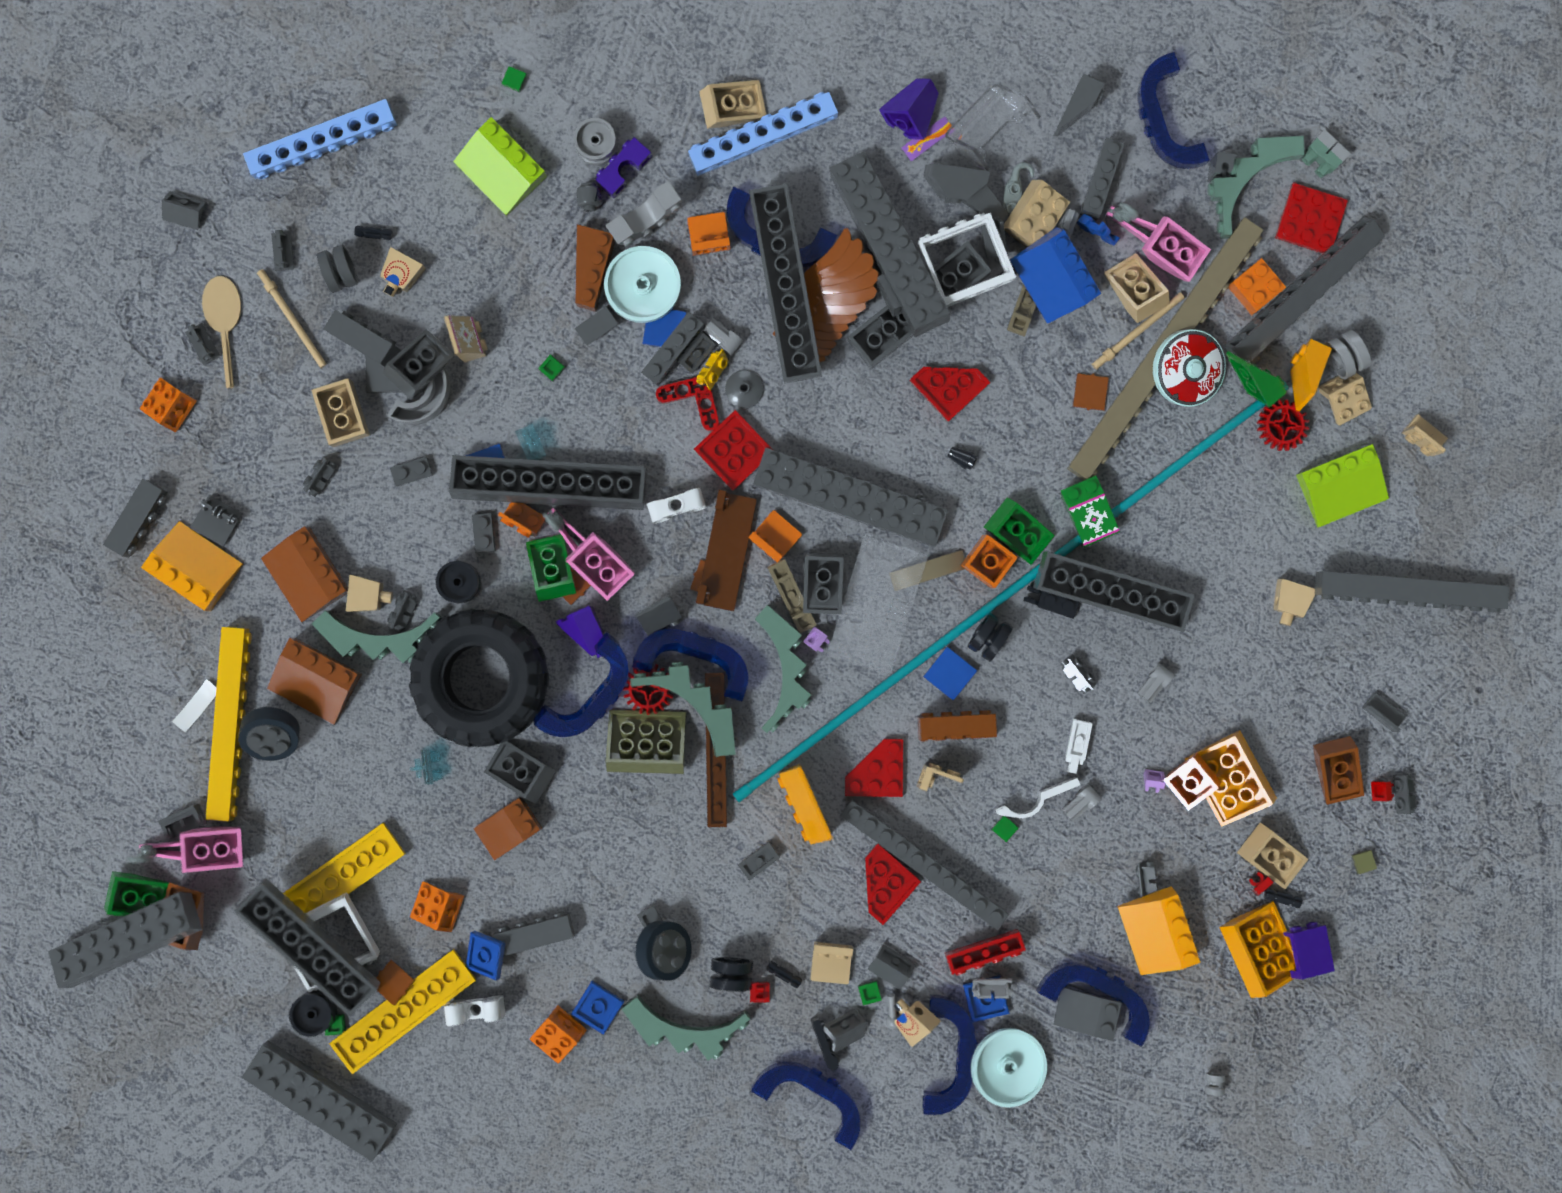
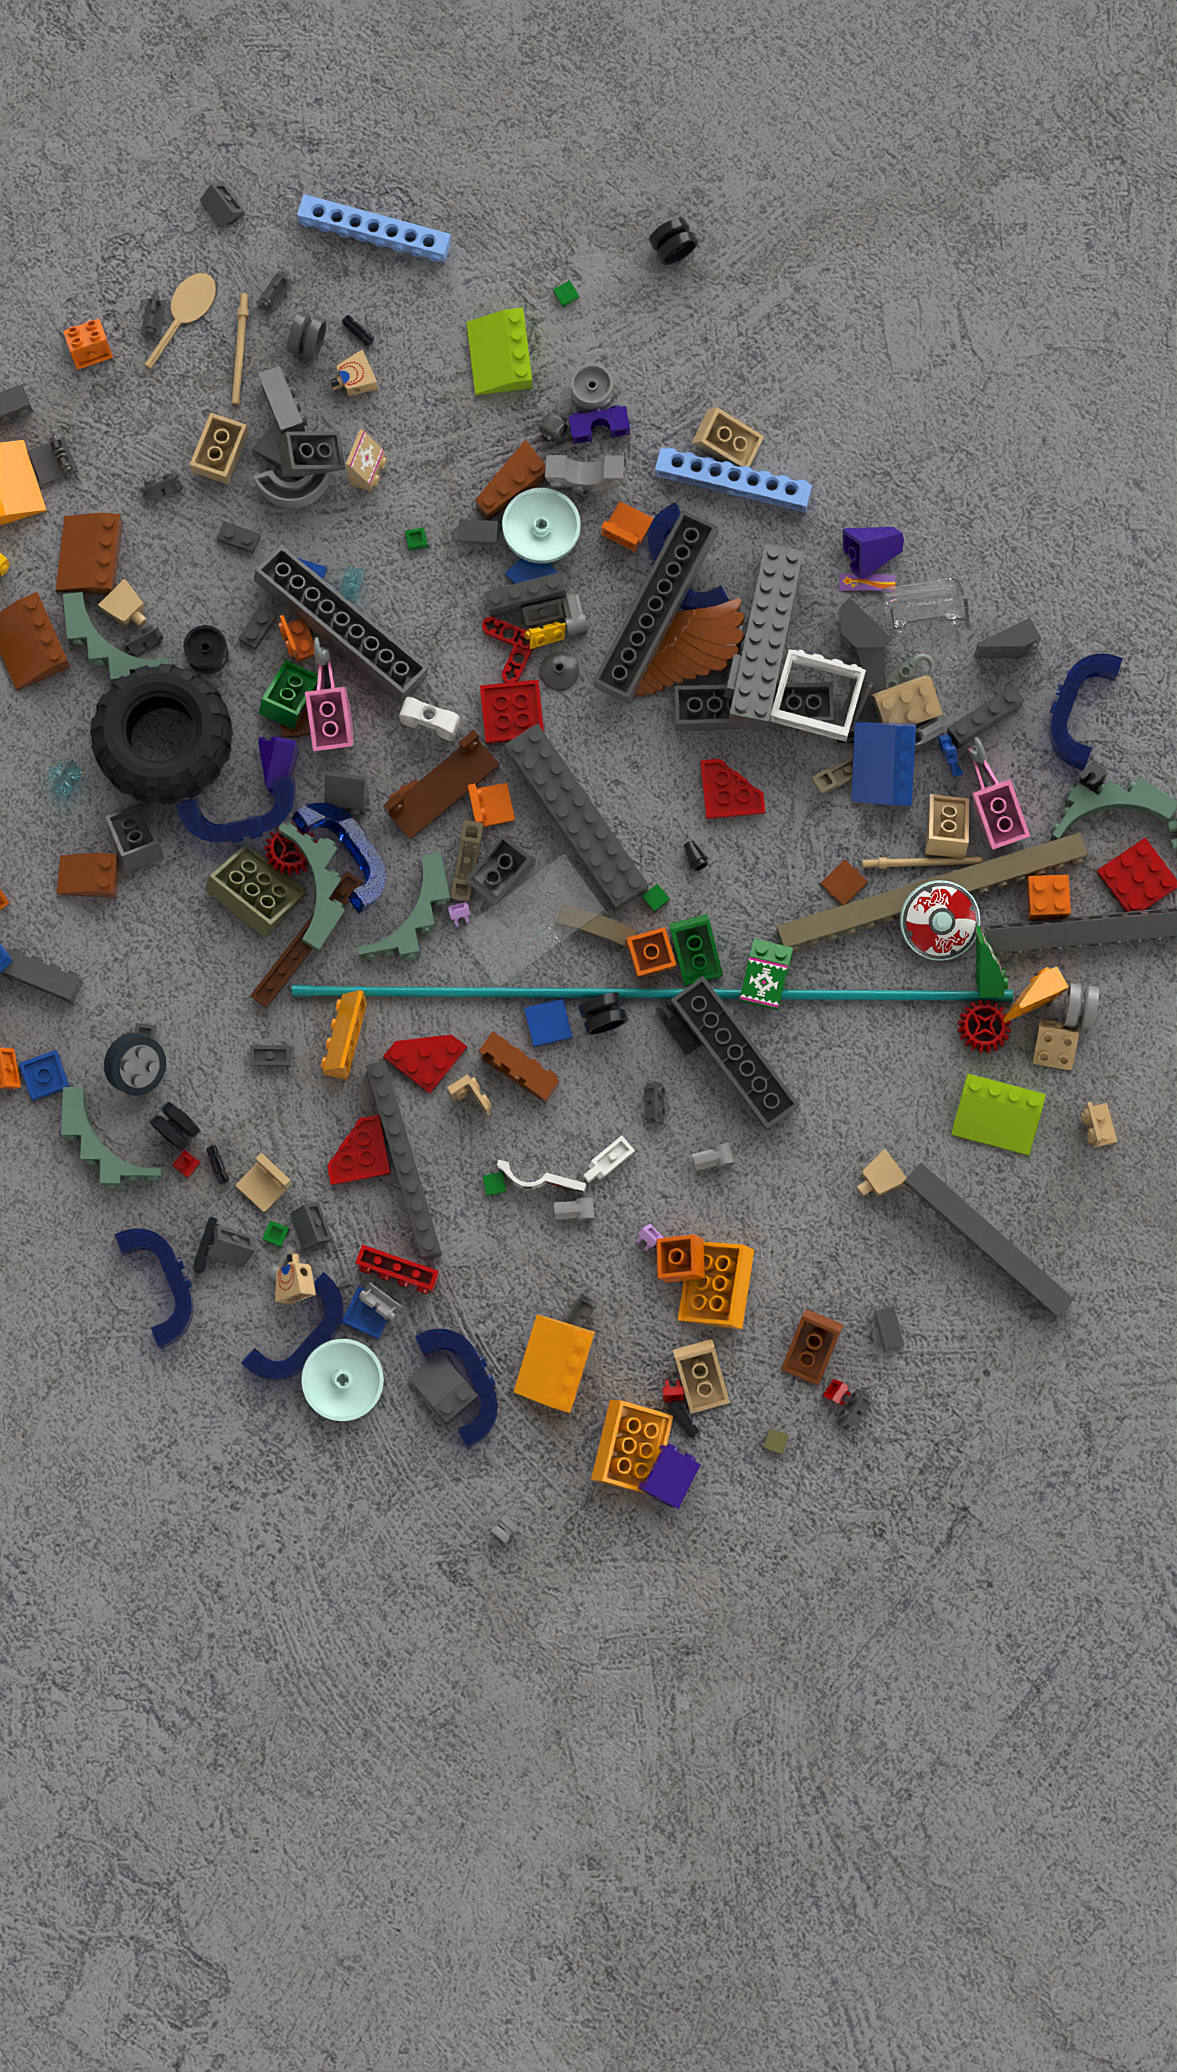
camera: 40 degrees right, 10 degrees down
(956, 513) = (655, 898): none -> green tile

